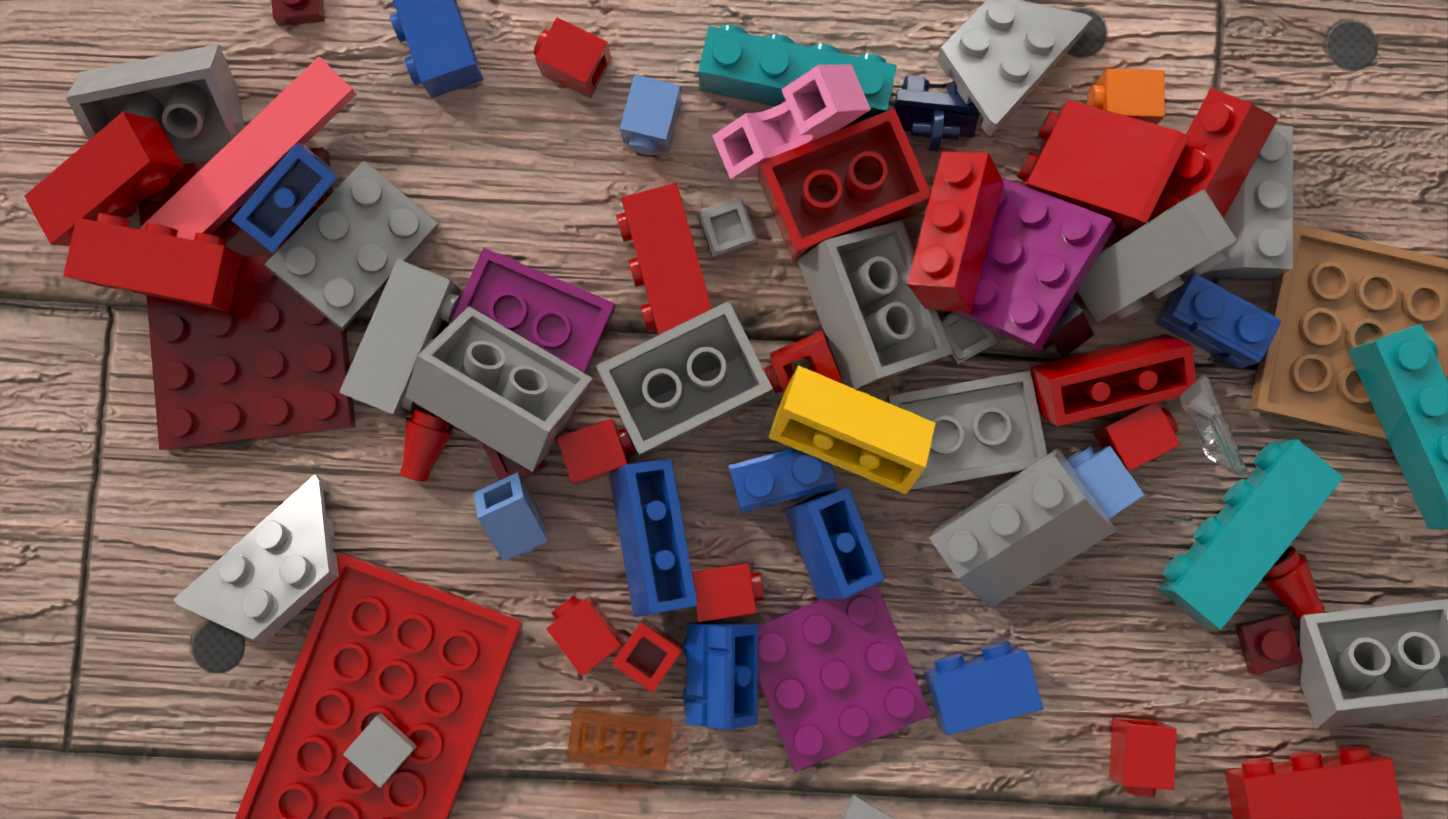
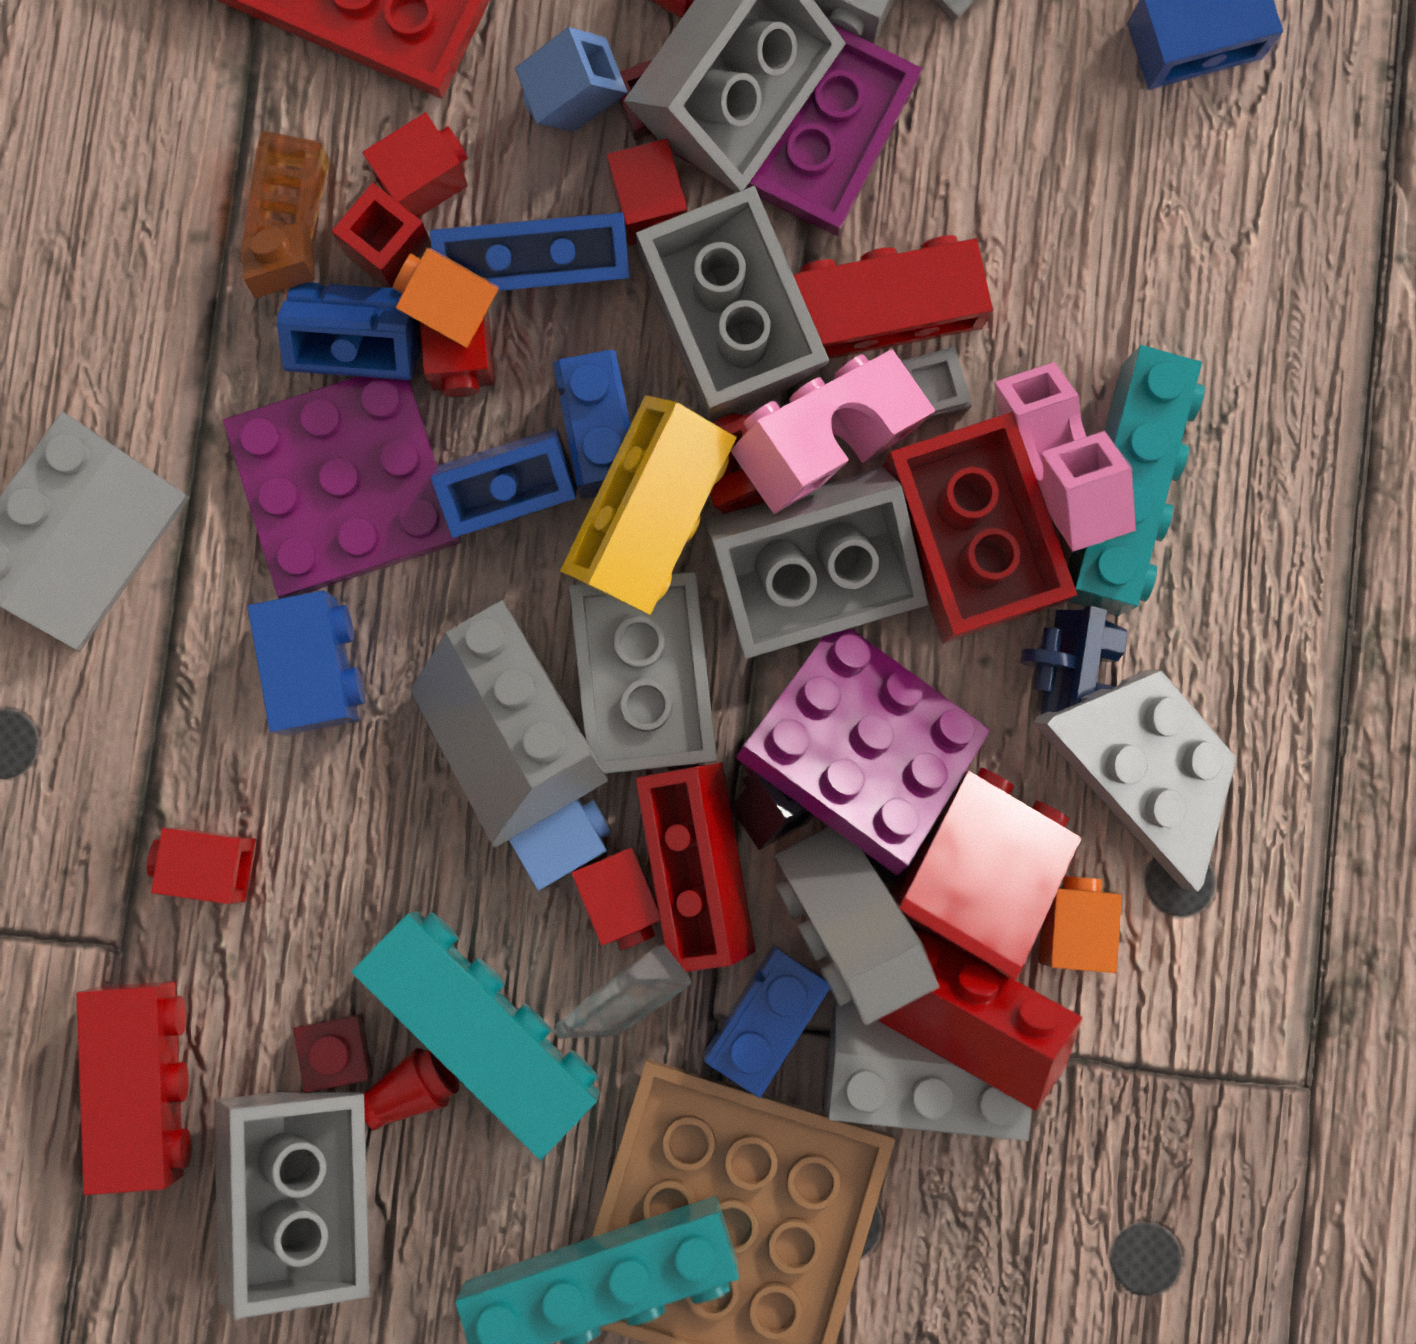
camera: 85 degrees right, 0 degrees up
(572, 57) = (1170, 196): red brick -> none
(650, 115) = (1087, 291): medium blue brick -> none
(670, 737) = (277, 259): none -> dark orange plate
(704, 596) = (444, 295): none -> orange brick
(801, 322) = (794, 447): none -> bright pink arch
(956, 231) = (905, 664): red brick -> none
(966, 337) = (766, 679): light grey tile -> none

